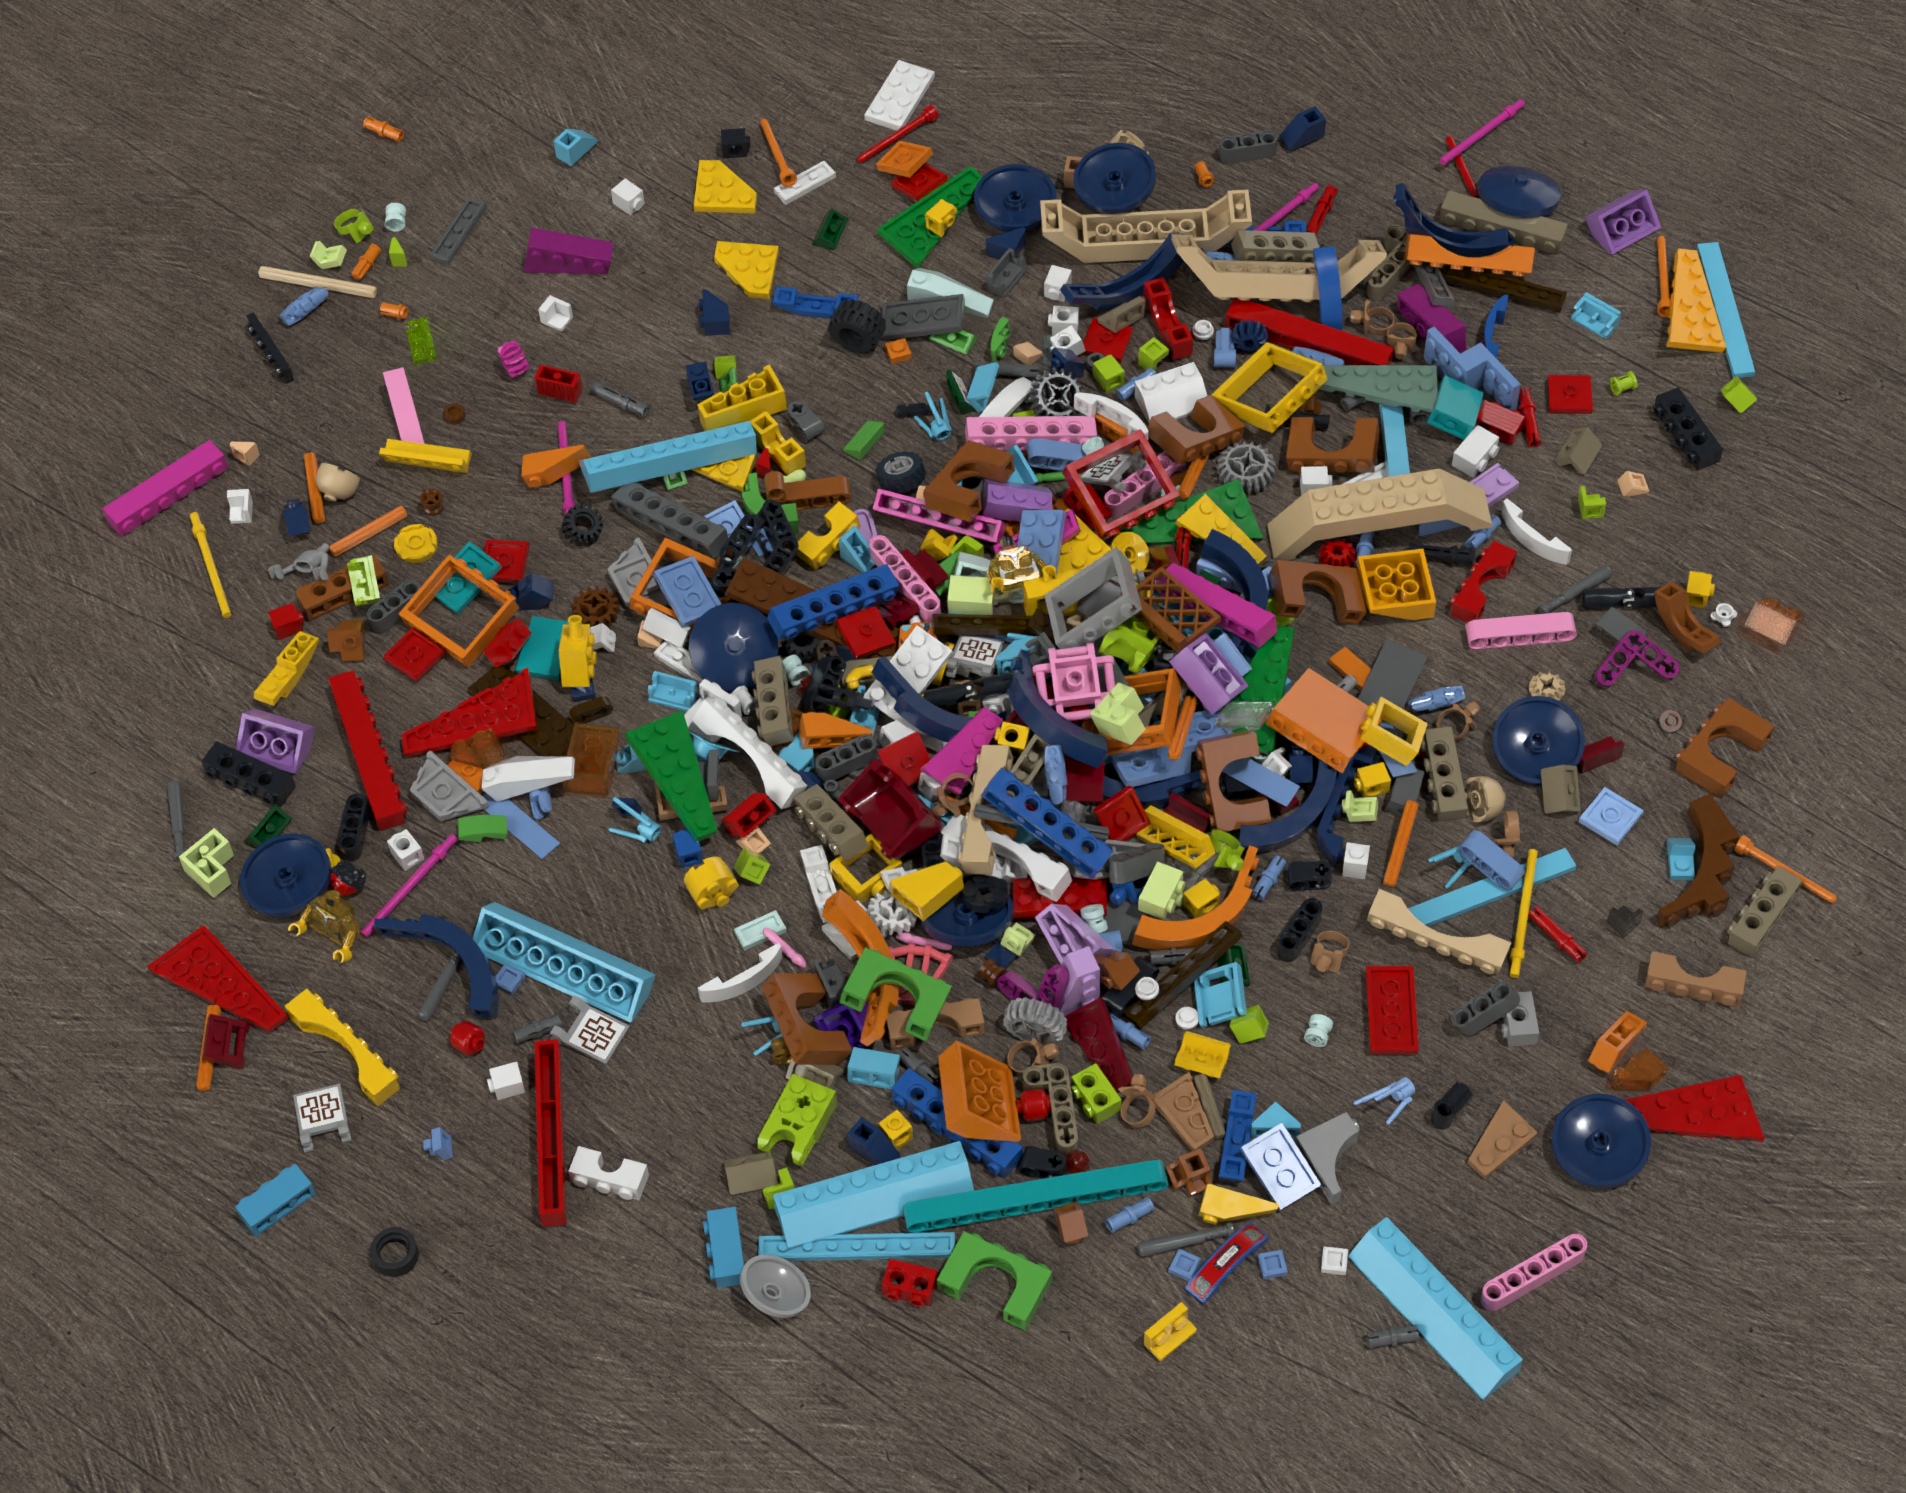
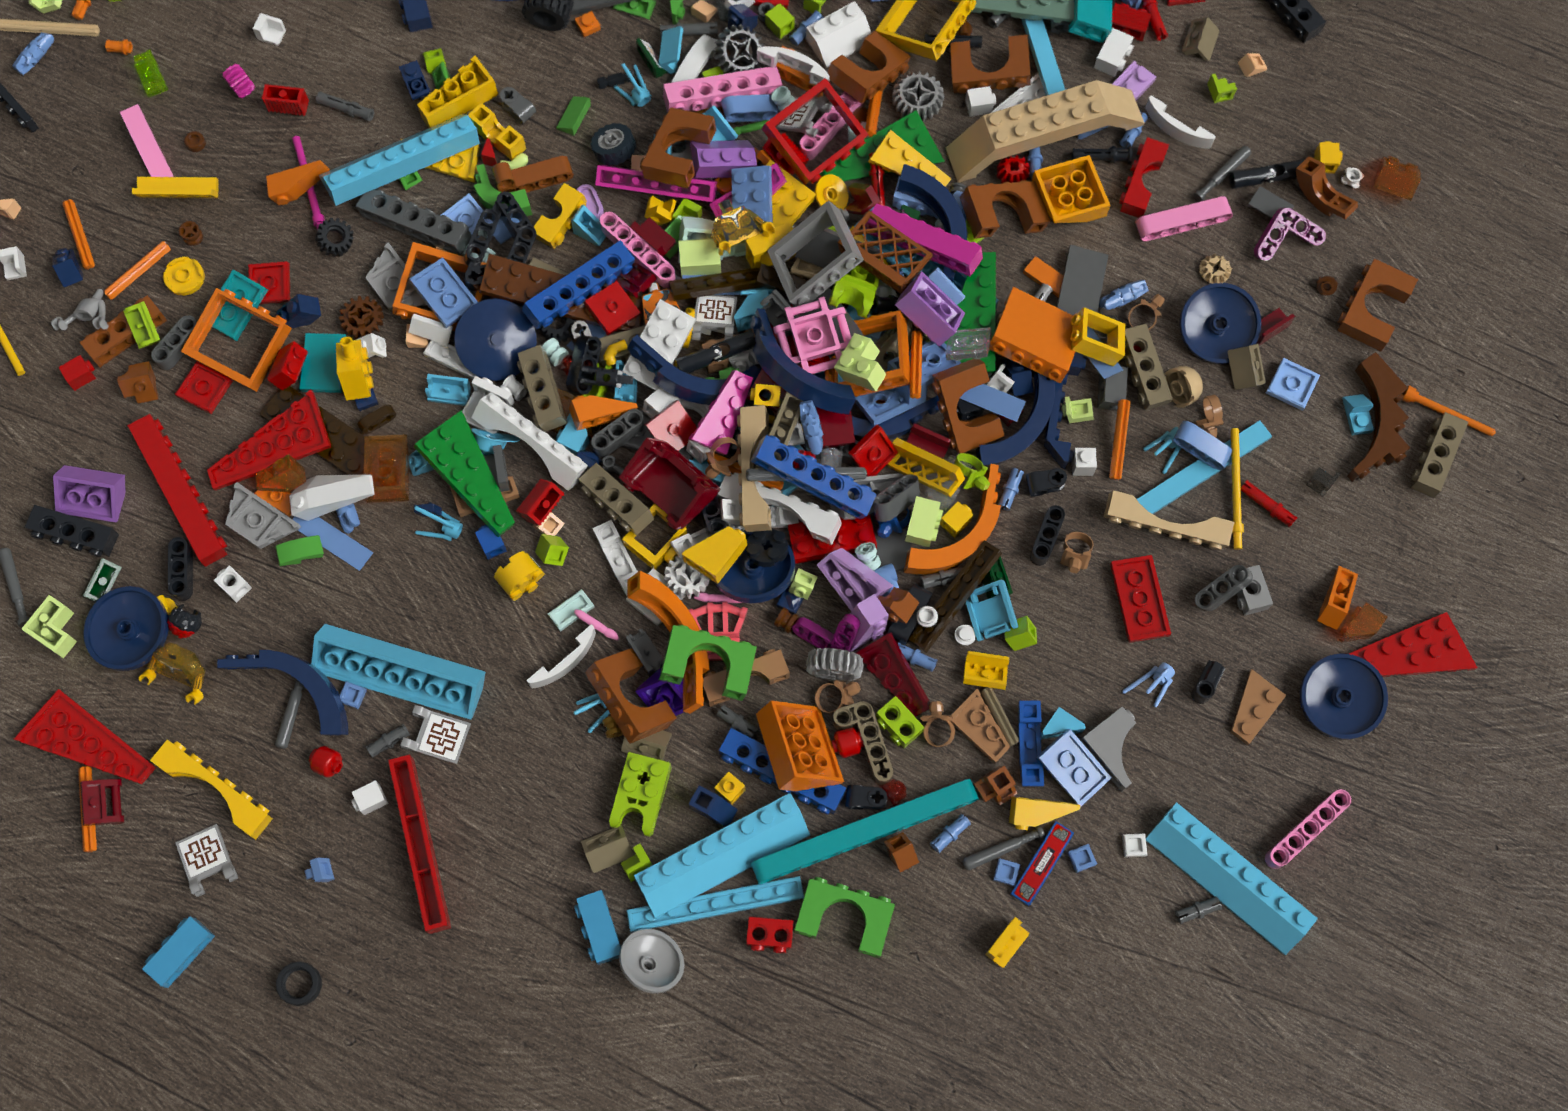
camera: 15 degrees left, 15 degrees up
(289, 669) = (89, 420): yellow slope -> none
(335, 482) = (97, 228): tan cylinder -> none
(438, 854) = (263, 582): dark pink bar -> none
(626, 1181) = (499, 877): white arch -> none
(873, 1068) = (698, 729): medium azure hinge -> none
(1319, 1028) = (1081, 629): light aqua wheel -> none
(1372, 780) = (1083, 382): yellow brick -> none
(1722, 987) = (1367, 527): medium nougat arch -> none

